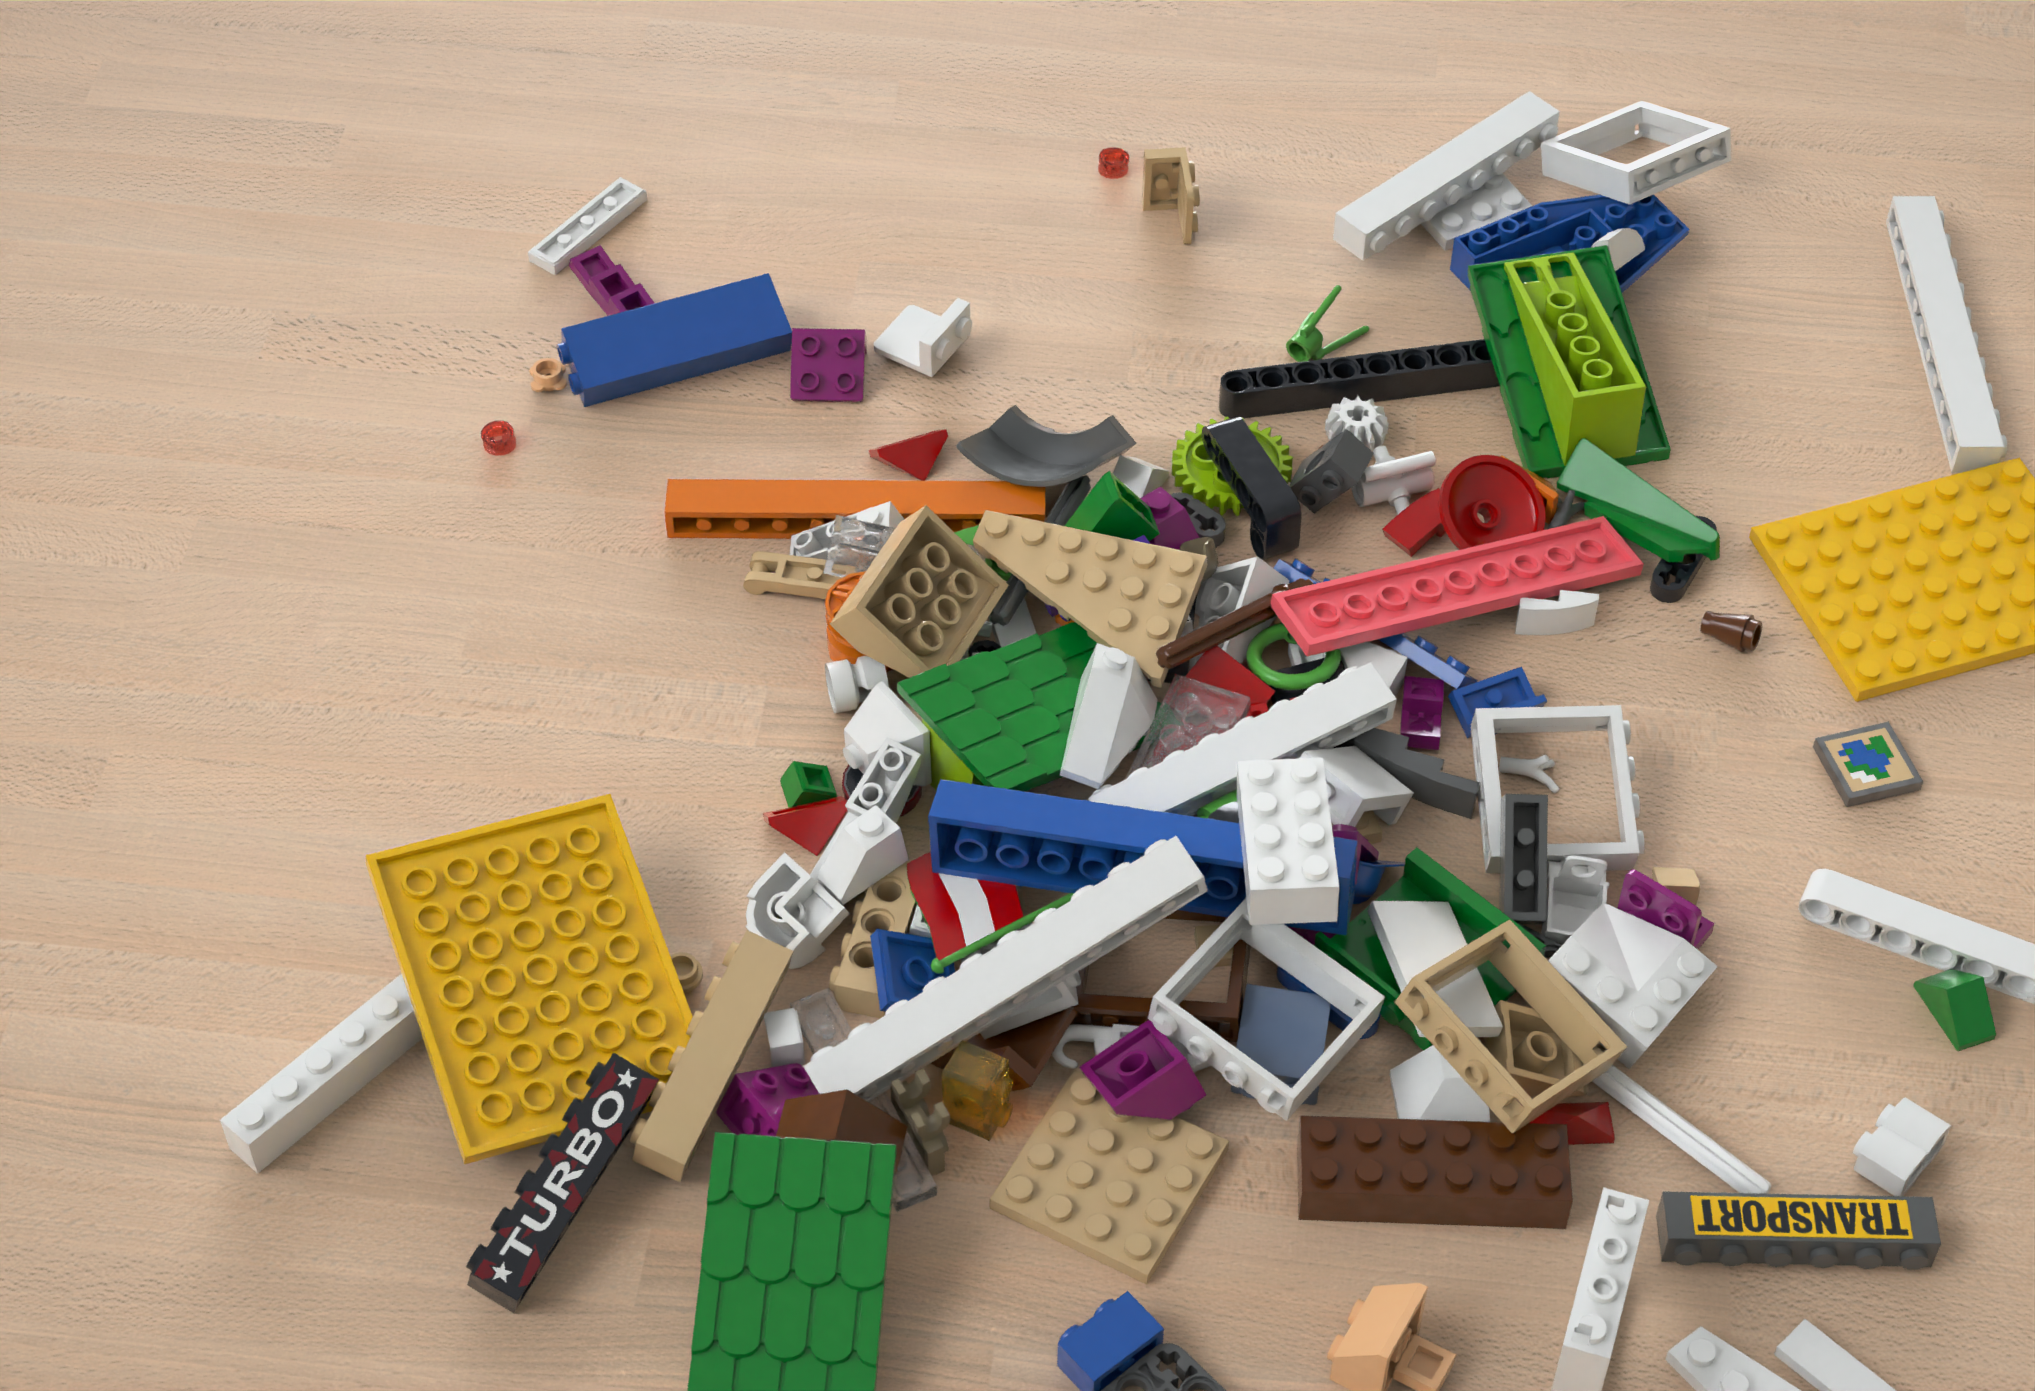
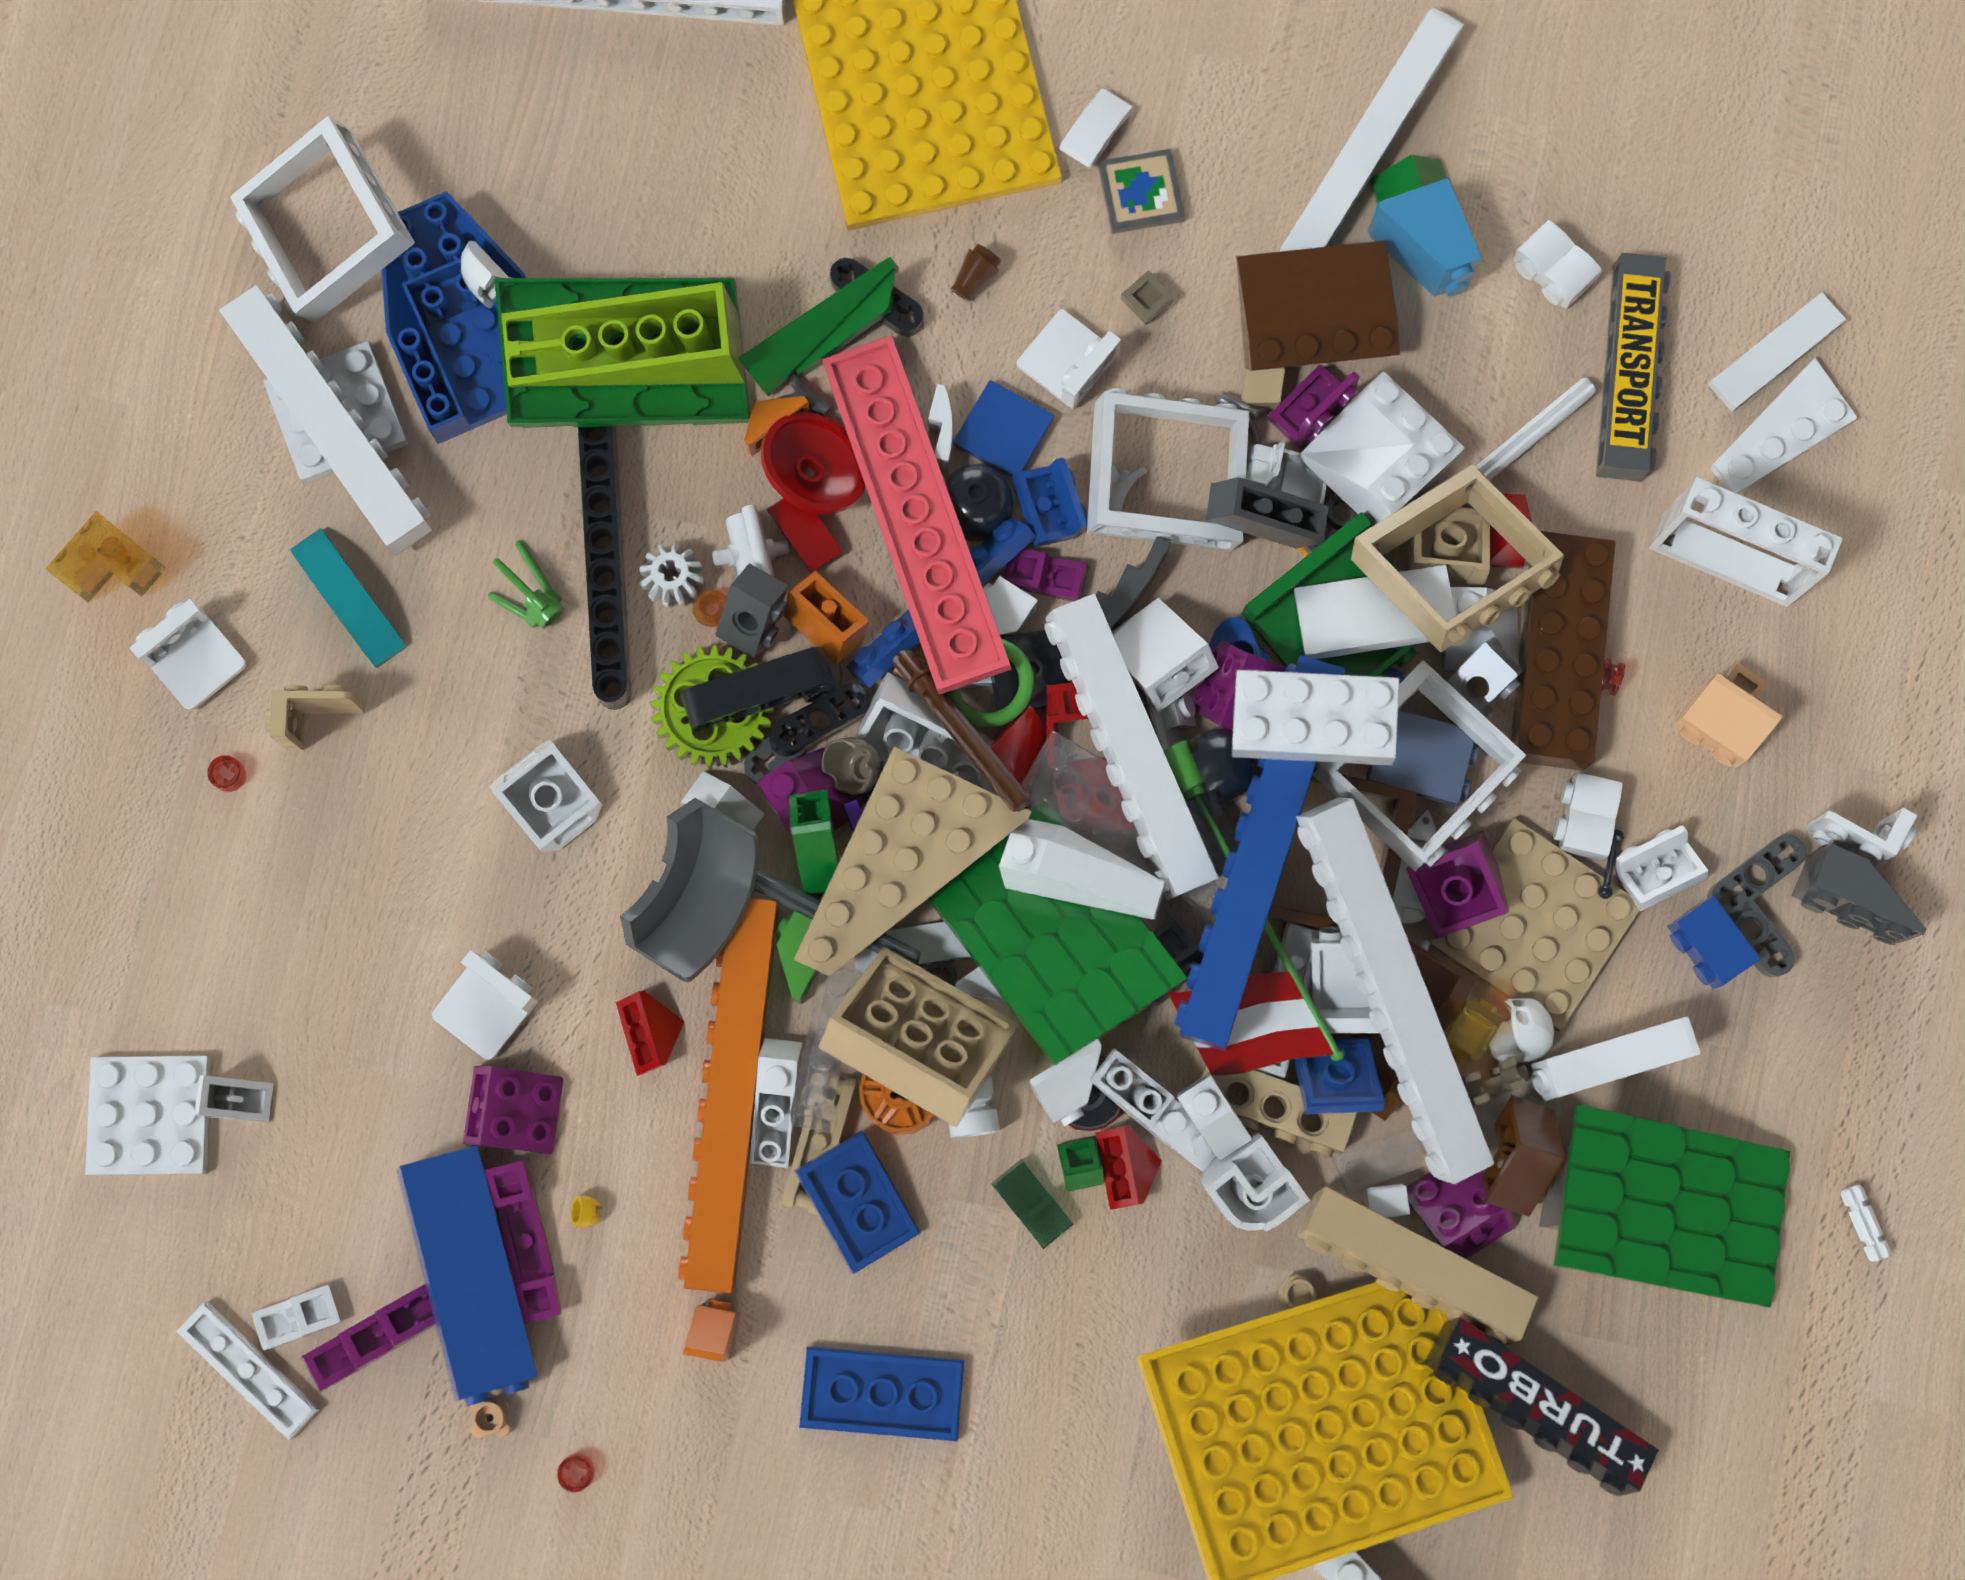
camera: 85 degrees left, 30 degrees up
(573, 649) = (881, 1394): none -> blue tile
(626, 505) = (712, 1331): none -> orange slope
(633, 247) = (295, 1318): none -> white slope
(711, 386) = (524, 1241): none -> magenta slope
(738, 419) = (584, 1211): none -> yellow hinge
(757, 606) = (857, 1202): none -> blue tile
(767, 748) = (1032, 1204): none -> clear green slope
(805, 146) = (146, 1116): none -> white plate
(823, 183) = (233, 1099): none -> white slope
(958, 1232) = (1614, 1059): none -> white slope
(982, 1154) = (1526, 1034): none -> white helmet
(1122, 356) = (547, 798): none -> white slope
(1193, 1285) = (1659, 868): none -> white bracket
(1220, 124) = (189, 654): none -> white bracket
(1221, 1250) = (1606, 891): none -> black hinge
(1229, 523) = (801, 741): none -> black beam
(1242, 1212) = (1588, 816): none -> white brick
(1284, 215) = (348, 598): none -> teal slope
(1290, 62) = (100, 552): none -> clear yellow brick
(1336, 532) = (825, 617): none -> orange brick
(1377, 1082) = (1493, 666): none -> brick
(1412, 1227) = (1612, 676): none -> clear red bush
(1486, 643) = (980, 500): none -> black cylinder
(1570, 667) = (1003, 430): none -> blue tile
(1645, 863) = (1253, 412): none -> flat silver bar
(1661, 711) = (1068, 358): none -> white bracket
(1747, 772) = (1147, 297): none -> dark tan plate
(1777, 907) = (1317, 306): none -> reddish brown slope
(1893, 1005) = (1428, 237): none -> dark azure slope
(1916, 711) = (1095, 127): none -> white slope

